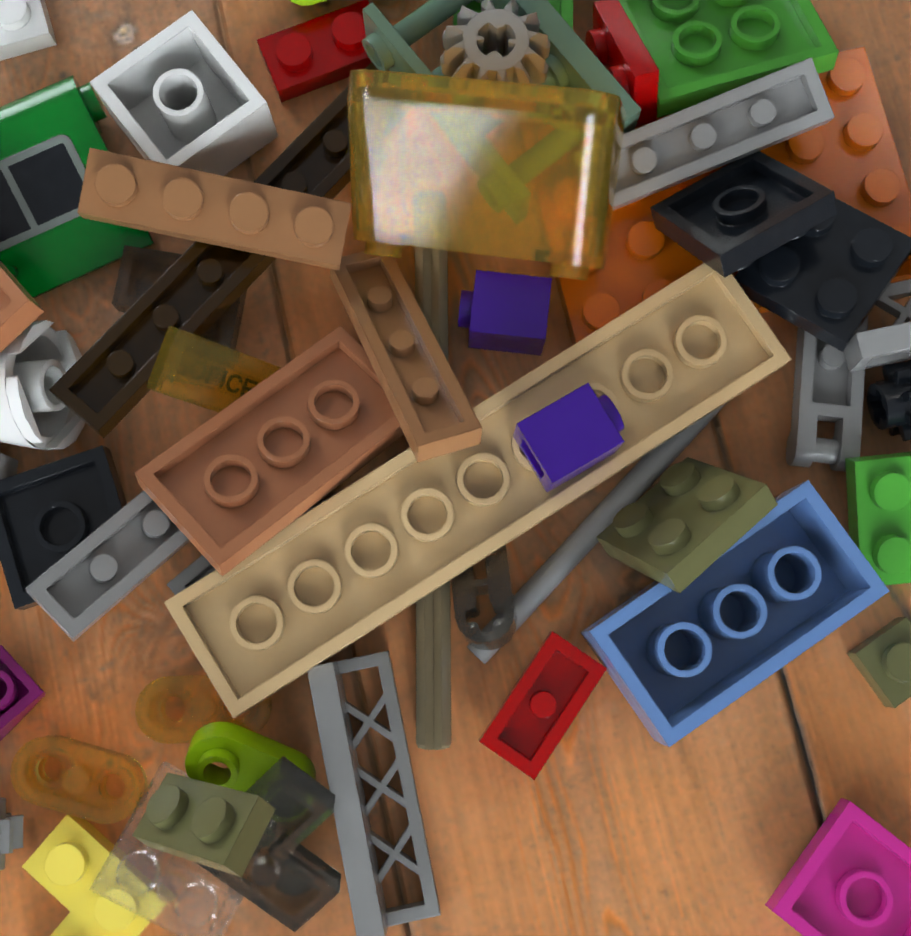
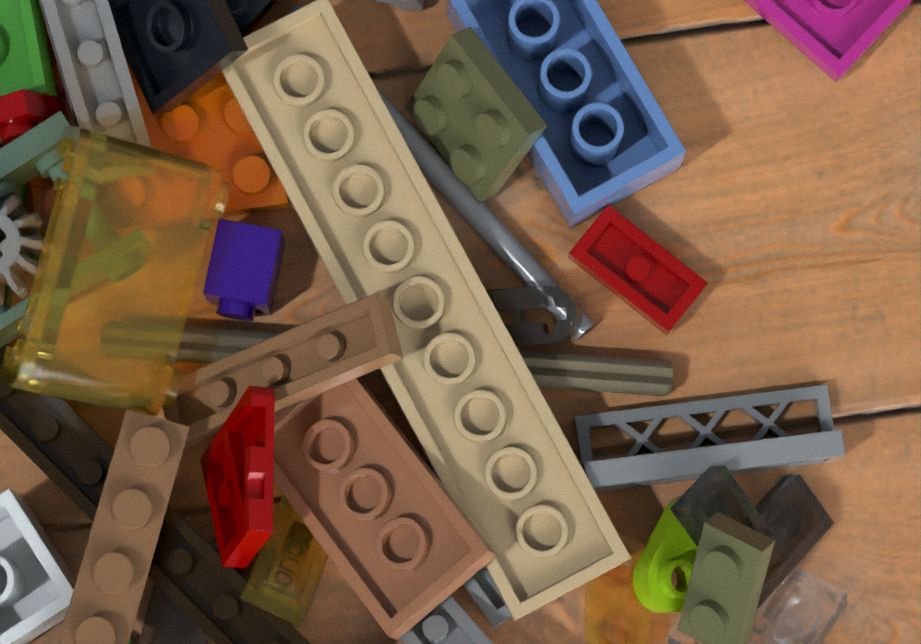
camera: 85 degrees left, 0 degrees up
(290, 320) = (241, 477): none -> red wing
(570, 436) = (390, 212): dark purple brick -> none

